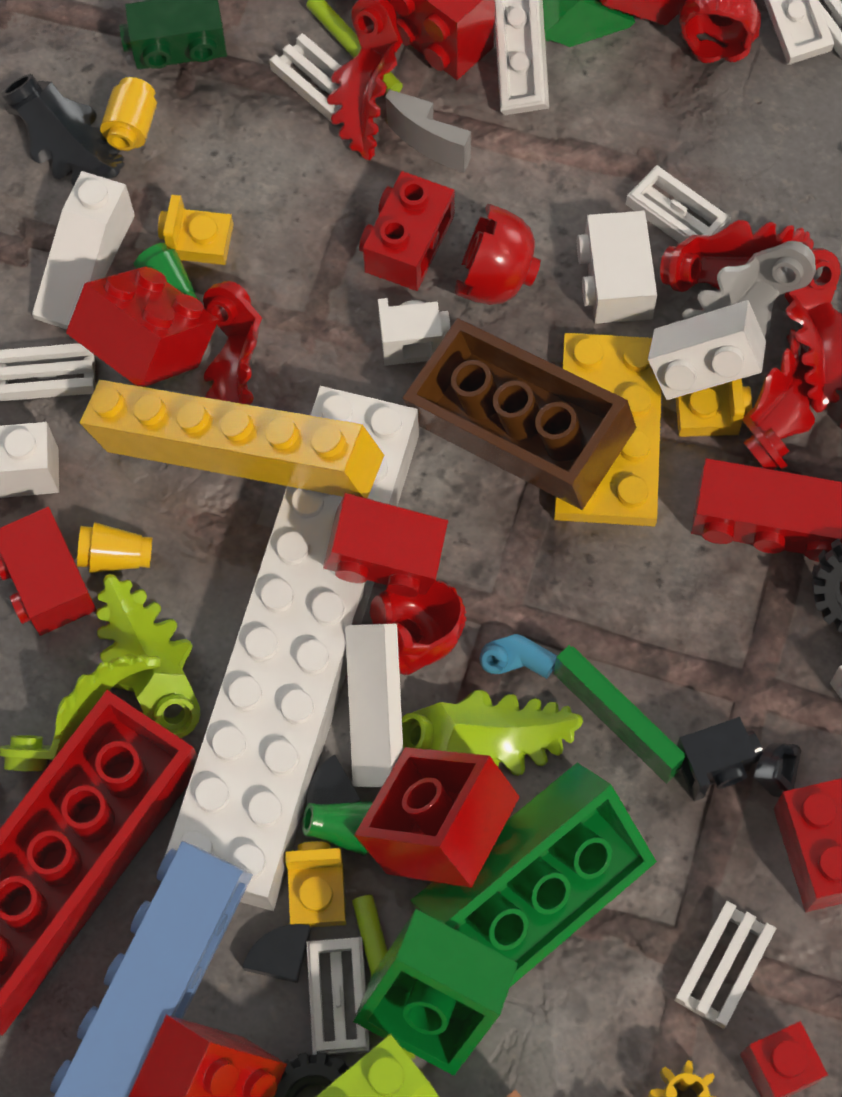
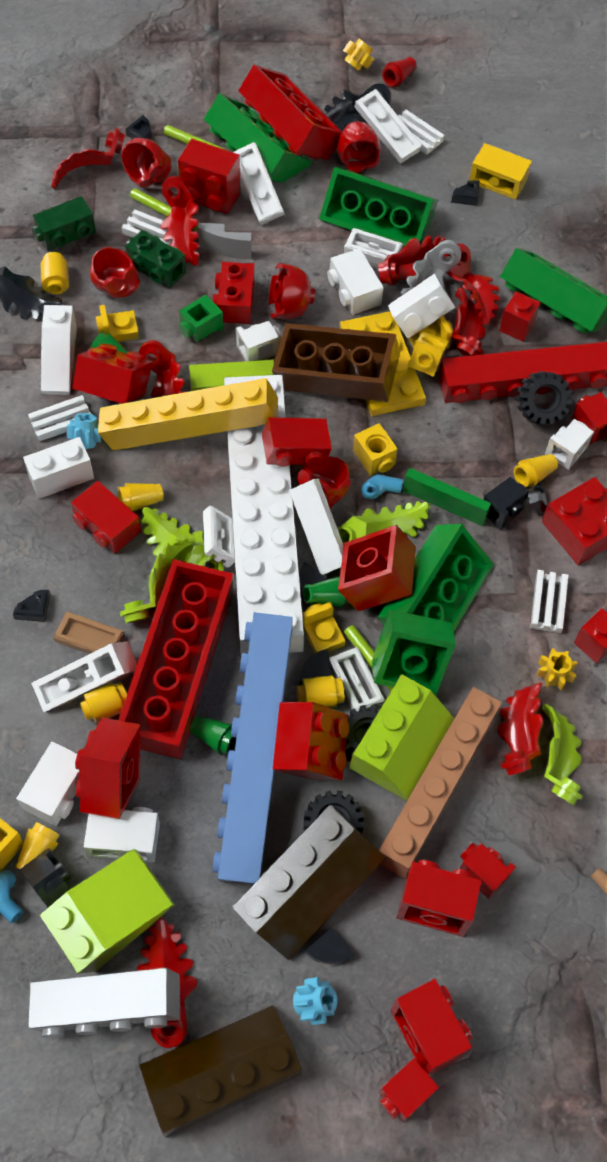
camera: 25 degrees left, 5 degrees down
(63, 1008) = (214, 734): none -> green cone
(65, 407) = (86, 428): none -> medium azure gear
(199, 660) = (218, 536): none -> white tile
(220, 141) = (114, 272): none -> red hair
(266, 1000) = (321, 690): none -> yellow brick
(300, 132) = (156, 259): none -> dark green brick
(304, 368) = (212, 375): none -> lime tile
(330, 262) = (200, 318): none -> green brick
(536, 569) = (371, 440): none -> yellow brick
(686, 441) = (428, 353): none -> yellow brick
(712, 139) = (377, 207): none -> green slope
(796, 711) = (533, 470): none -> yellow cone

